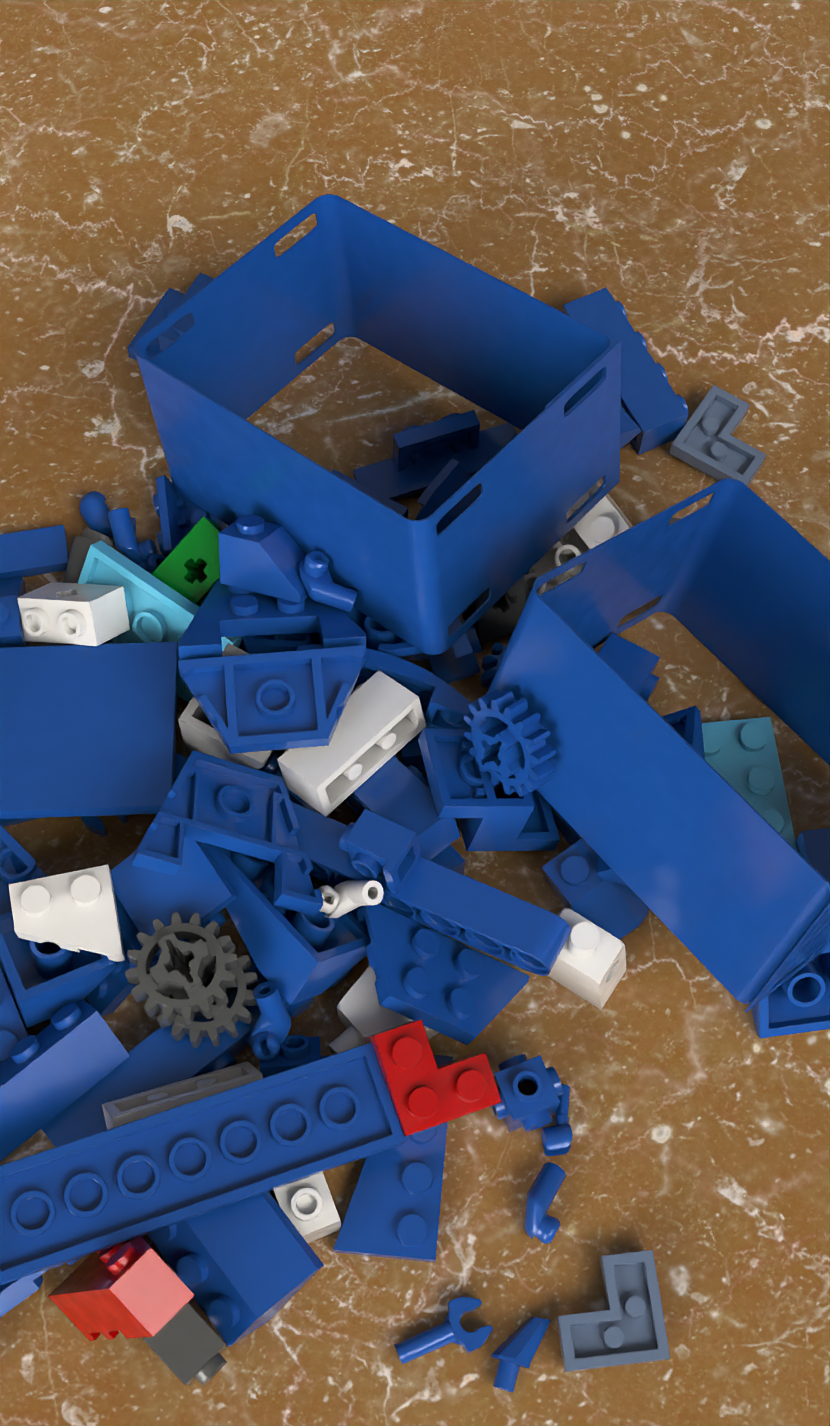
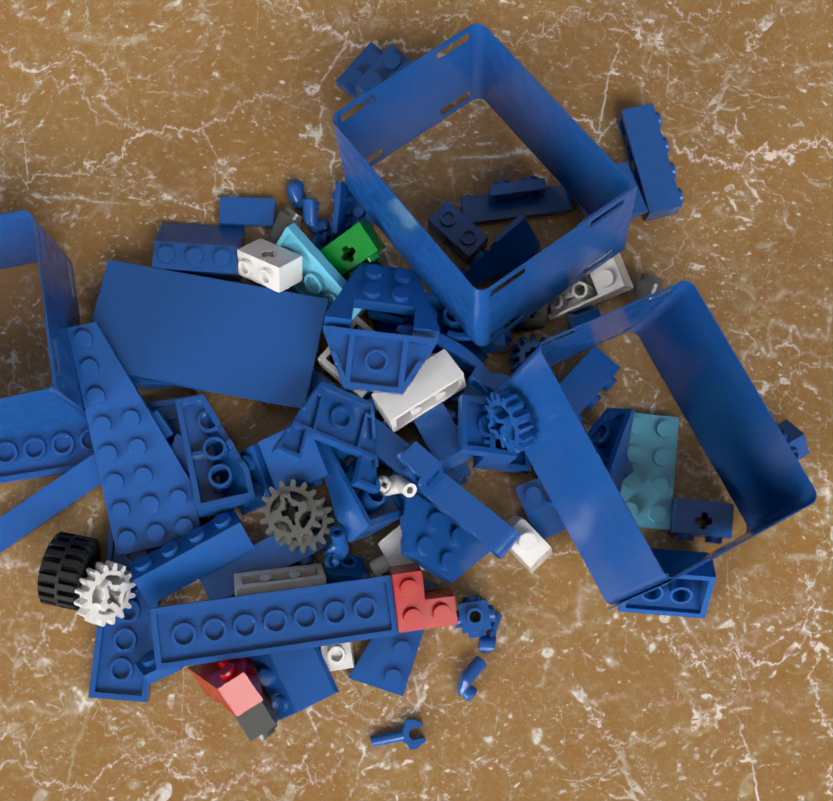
camera: 15 degrees right, 15 degrees up
(70, 910) = (234, 461): white wing -> none
(261, 559) = (391, 264): blue slope -> none
(320, 585) = (420, 289): blue arm -> none
(518, 1352) = (437, 755): blue bar -> none
(631, 1326) = (502, 757): sand blue plate -> none
(708, 439) = (691, 224): sand blue plate -> none

